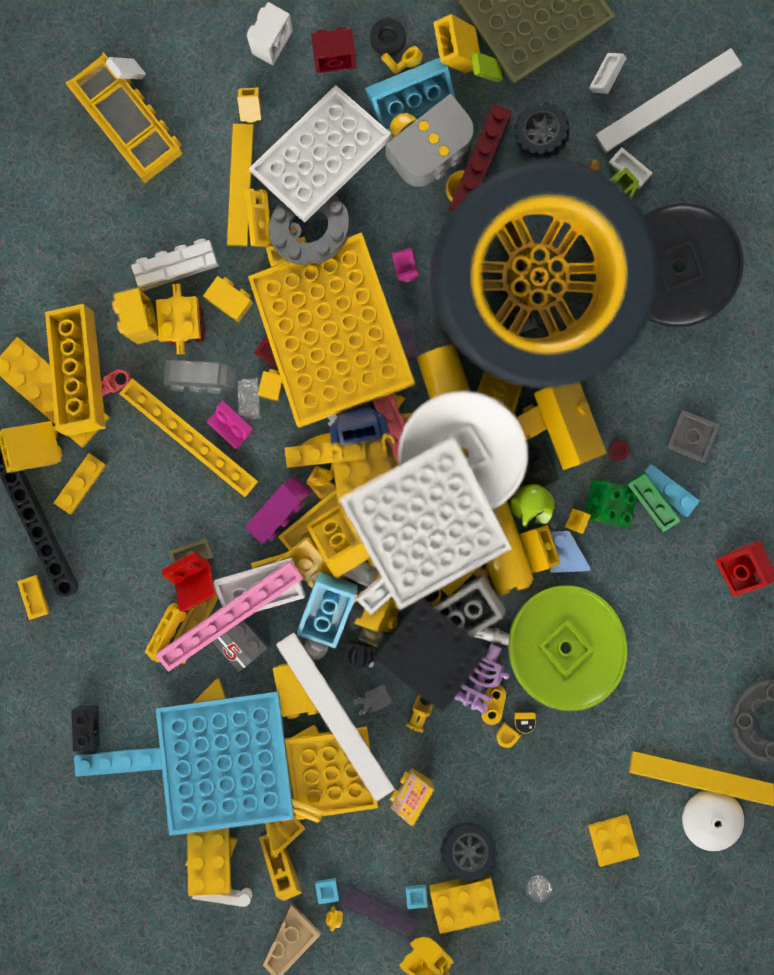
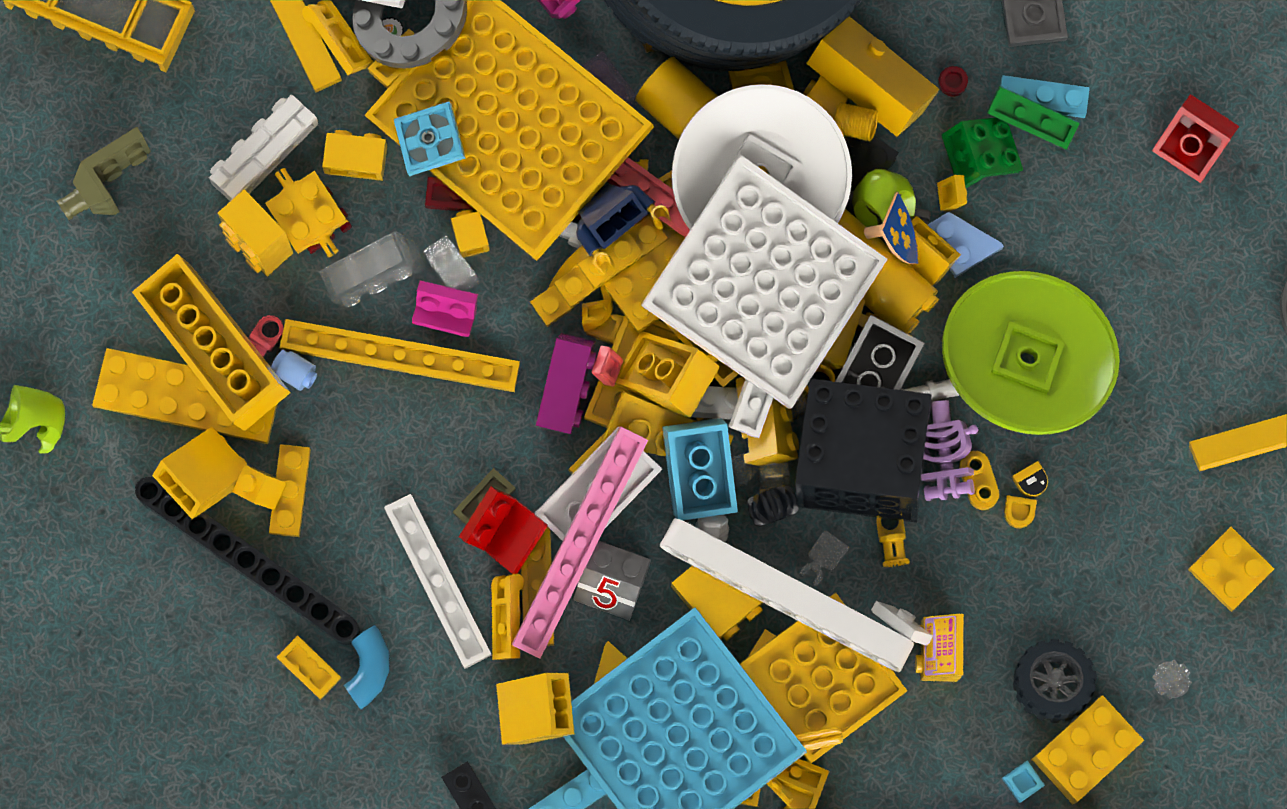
camera: 30 degrees left, 10 degrees down
(59, 225) = (103, 166): none -> olive plate
(59, 474) = (259, 487): none -> yellow brick
(69, 620) = (373, 667): none -> dark azure cylinder
(121, 412) = (294, 370): none -> light blue brick
(137, 587) = (437, 581): none -> white plate
(149, 700) = (535, 708): none -> yellow brick
(276, 314) = (429, 138): none -> medium azure piece
(306, 515) = (607, 366): none -> coral tile
(396, 768) = (902, 622): none -> white plate
(527, 533) = (897, 232): none -> blue shield
(542, 447) = (856, 121): none -> yellow piece

